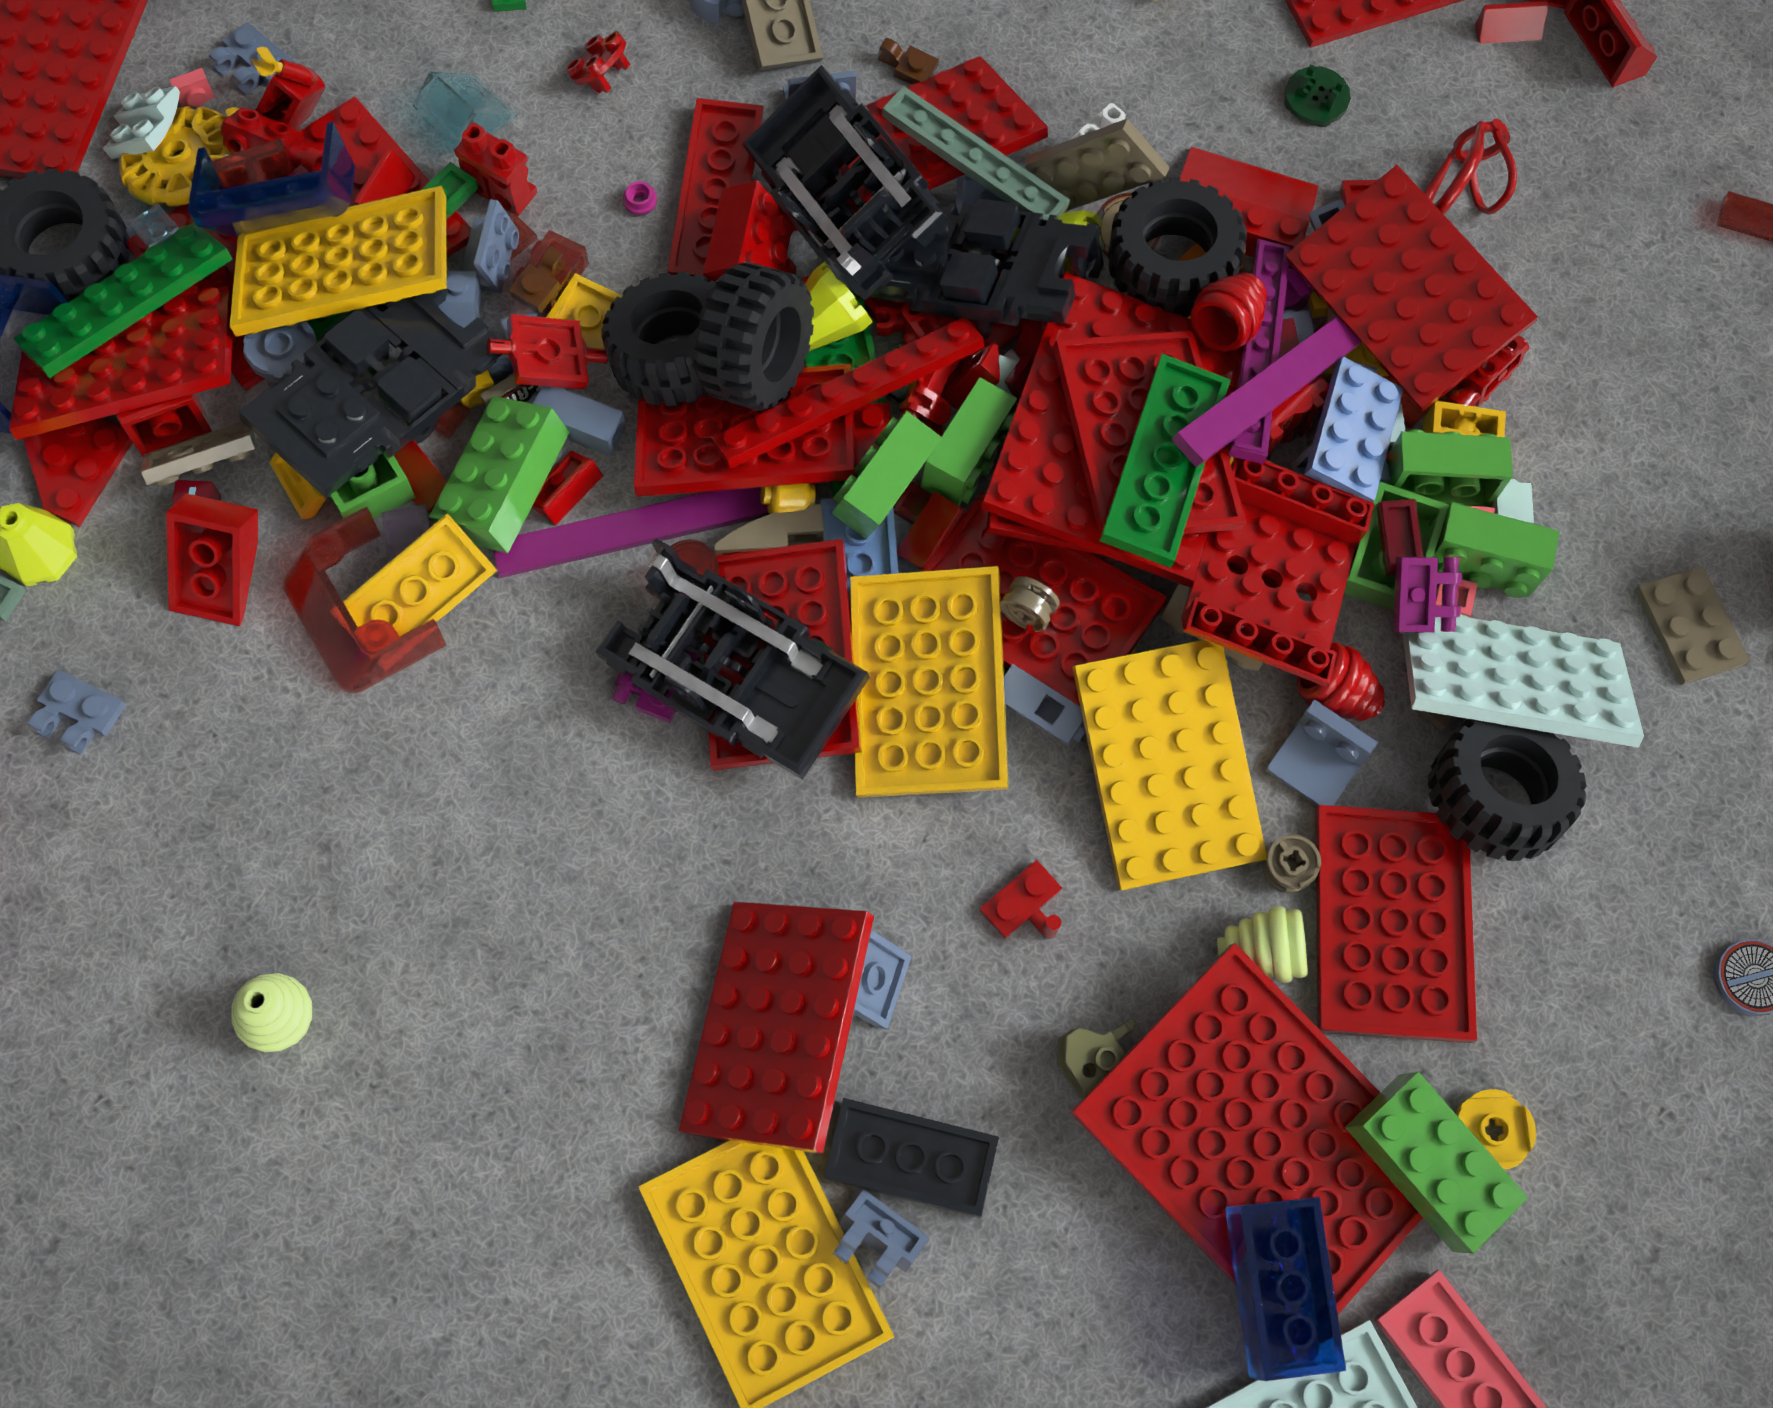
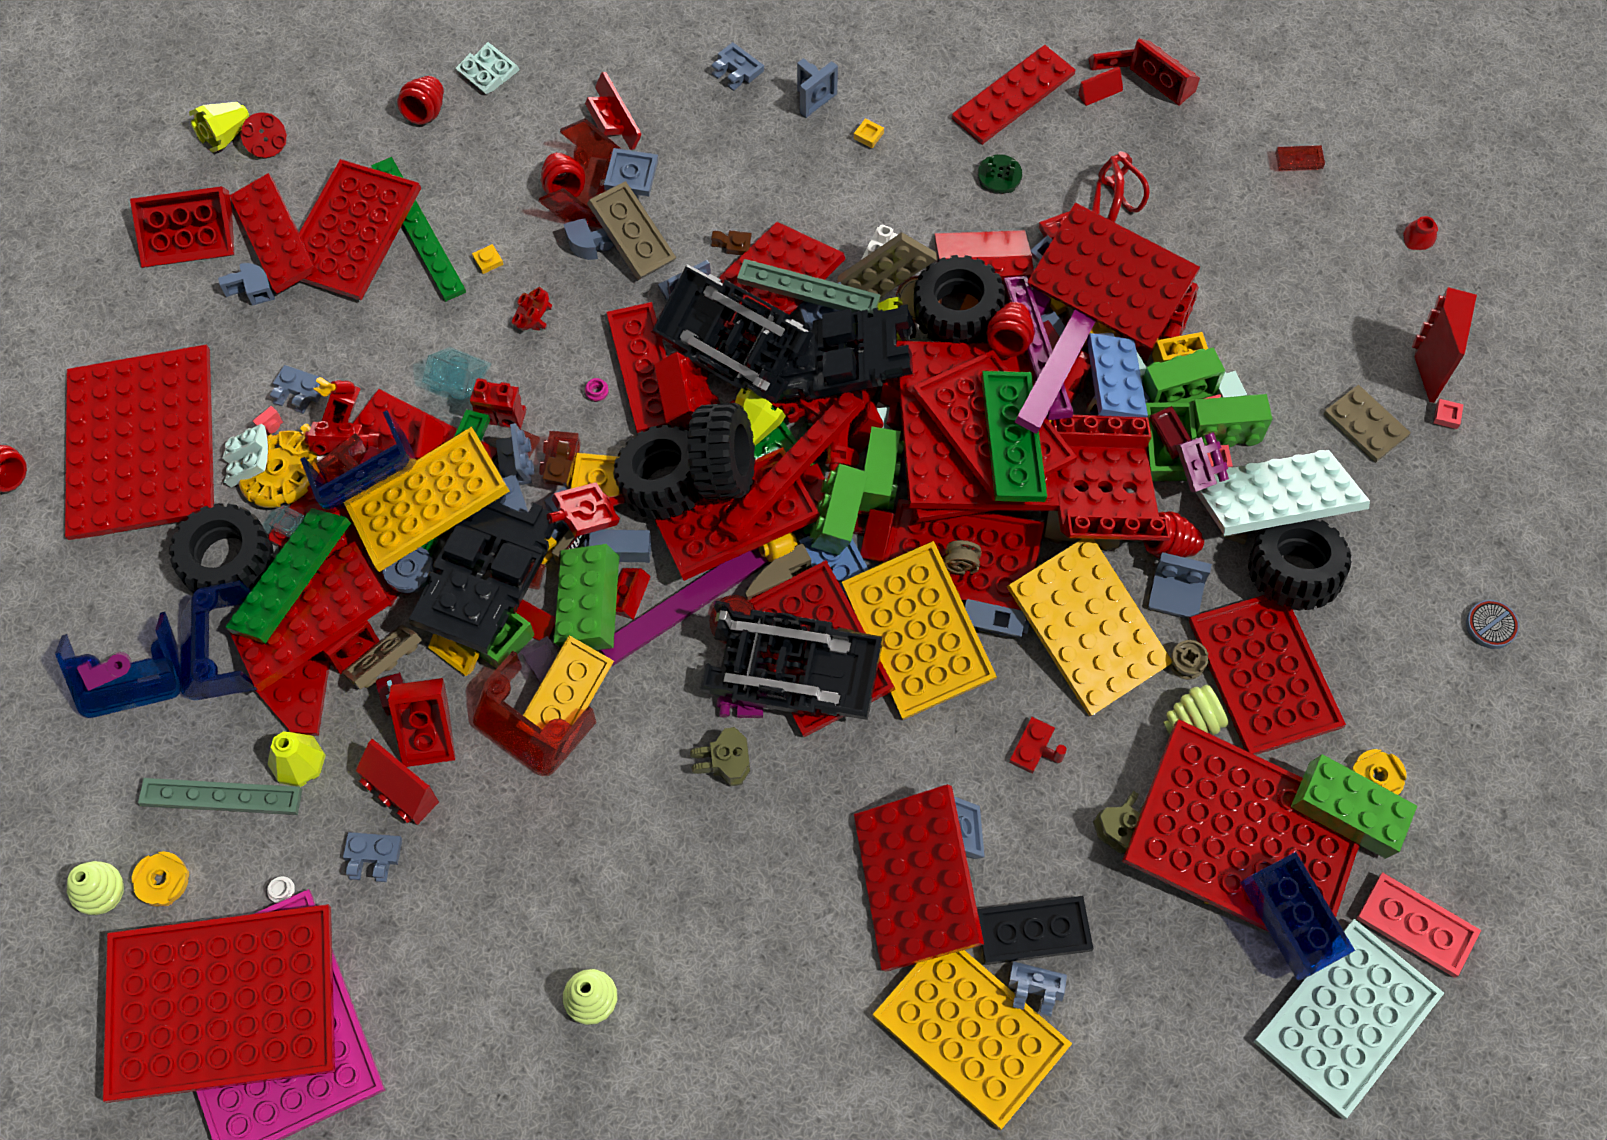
camera: 15 degrees left, 5 degrees down
(142, 629) = (395, 784): none -> red slope
(590, 757) = (728, 756): none -> olive hinge

